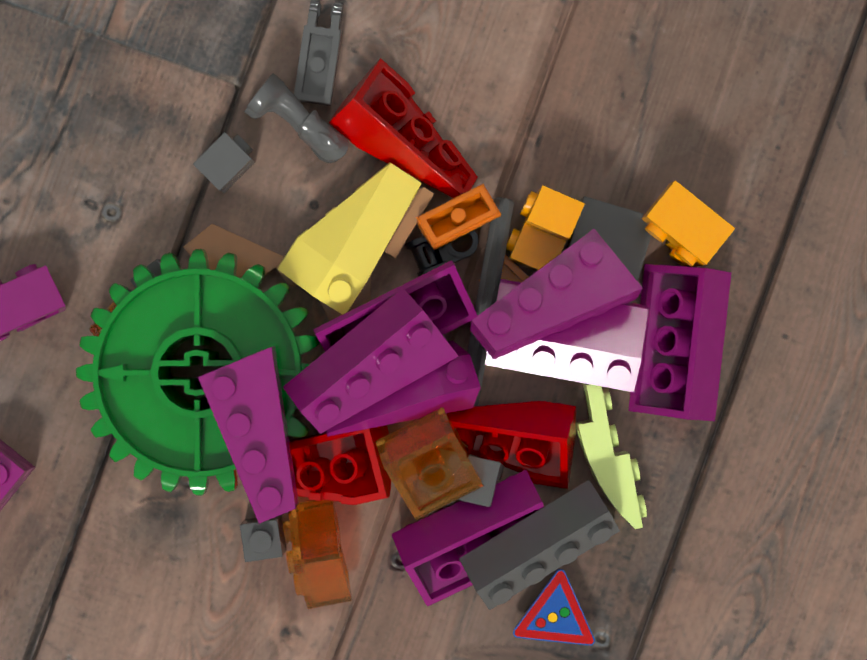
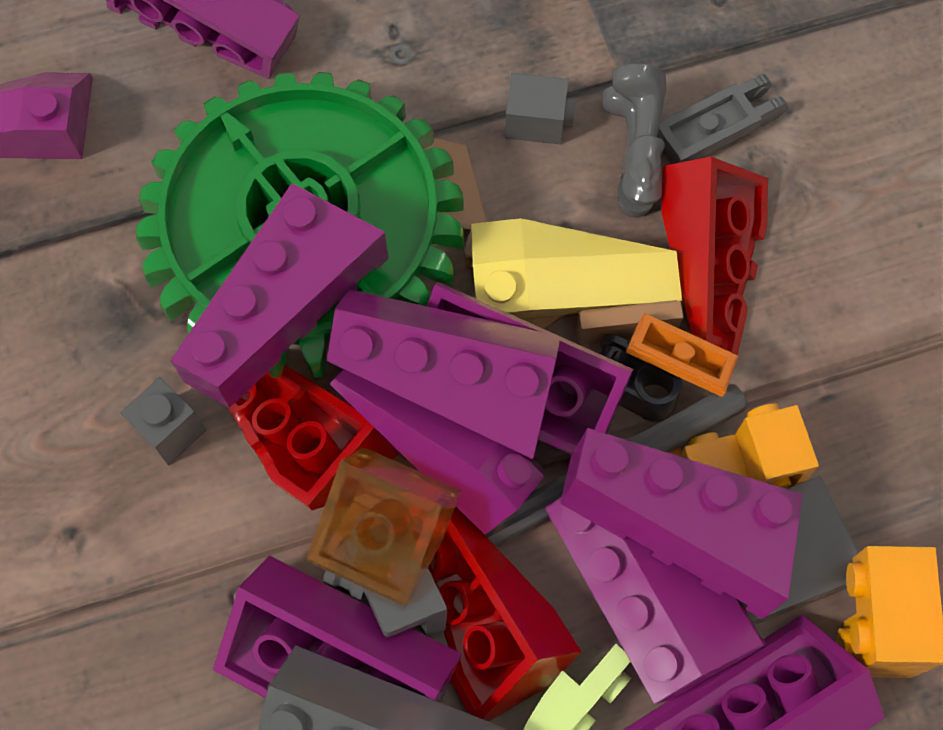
camera: 50 degrees right, 20 degrees down
(317, 554) = (183, 488): clear orange brick -> none

